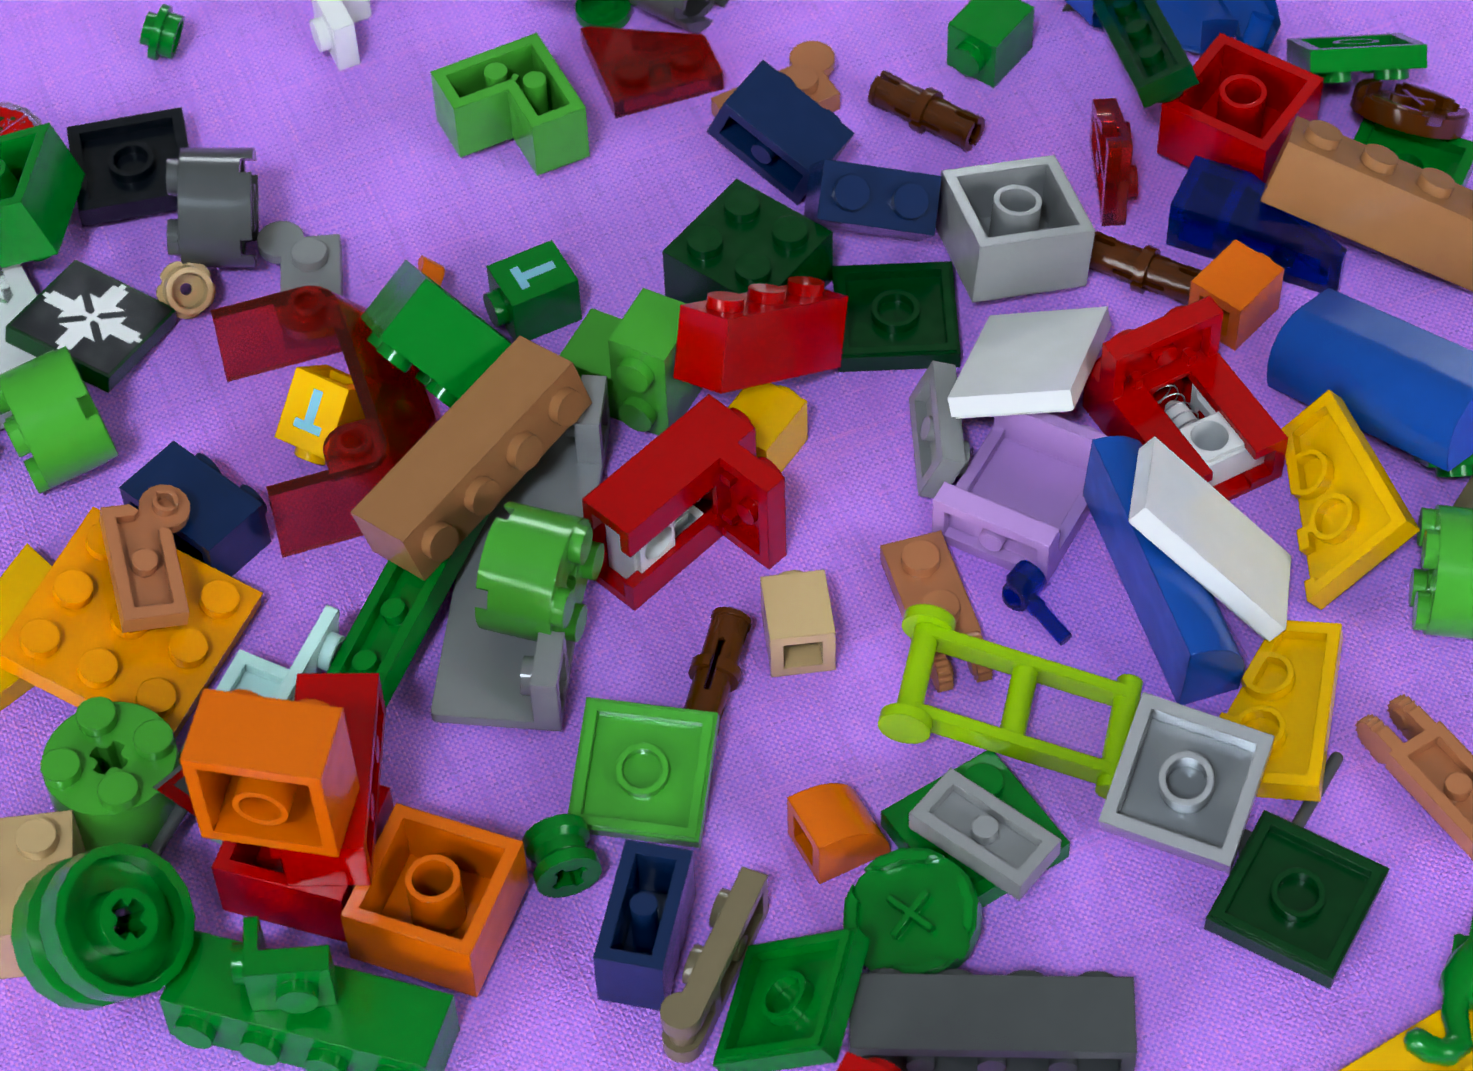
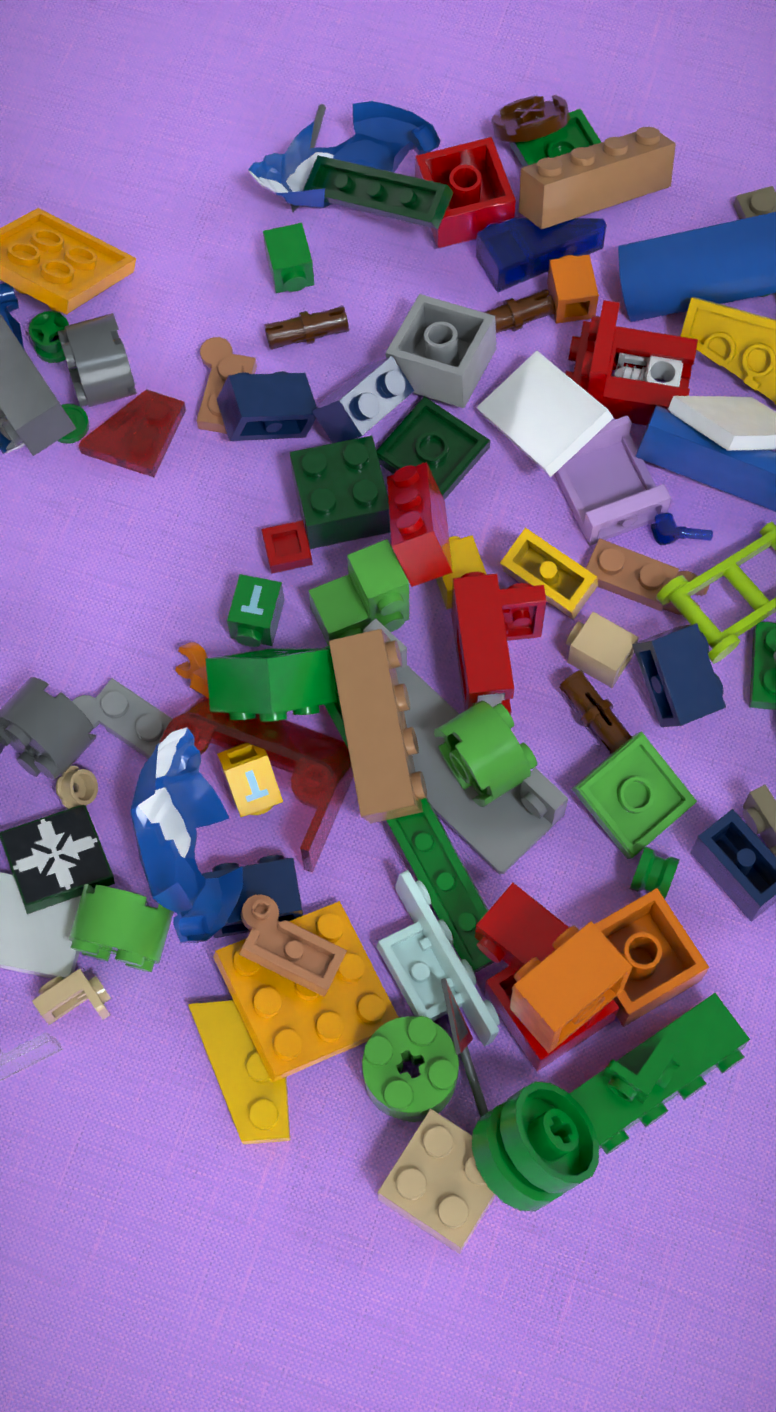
camera: 50 degrees left, 15 degrees up
(180, 372) = (165, 812): none -> blue animal
(513, 95) = (114, 510): bright green brick -> none
(633, 266) = (287, 546): none -> red plate
(828, 703) = (679, 675): none -> dark blue brick
(833, 830) = (745, 733): orange brick -> none
(835, 504) = (539, 563): none -> yellow brick
(937, 438) = (535, 489): light grey plate -> none
(1112, 160) = (433, 268): clear red wing -> none
(1377, 54) = (476, 109): green plate -> none

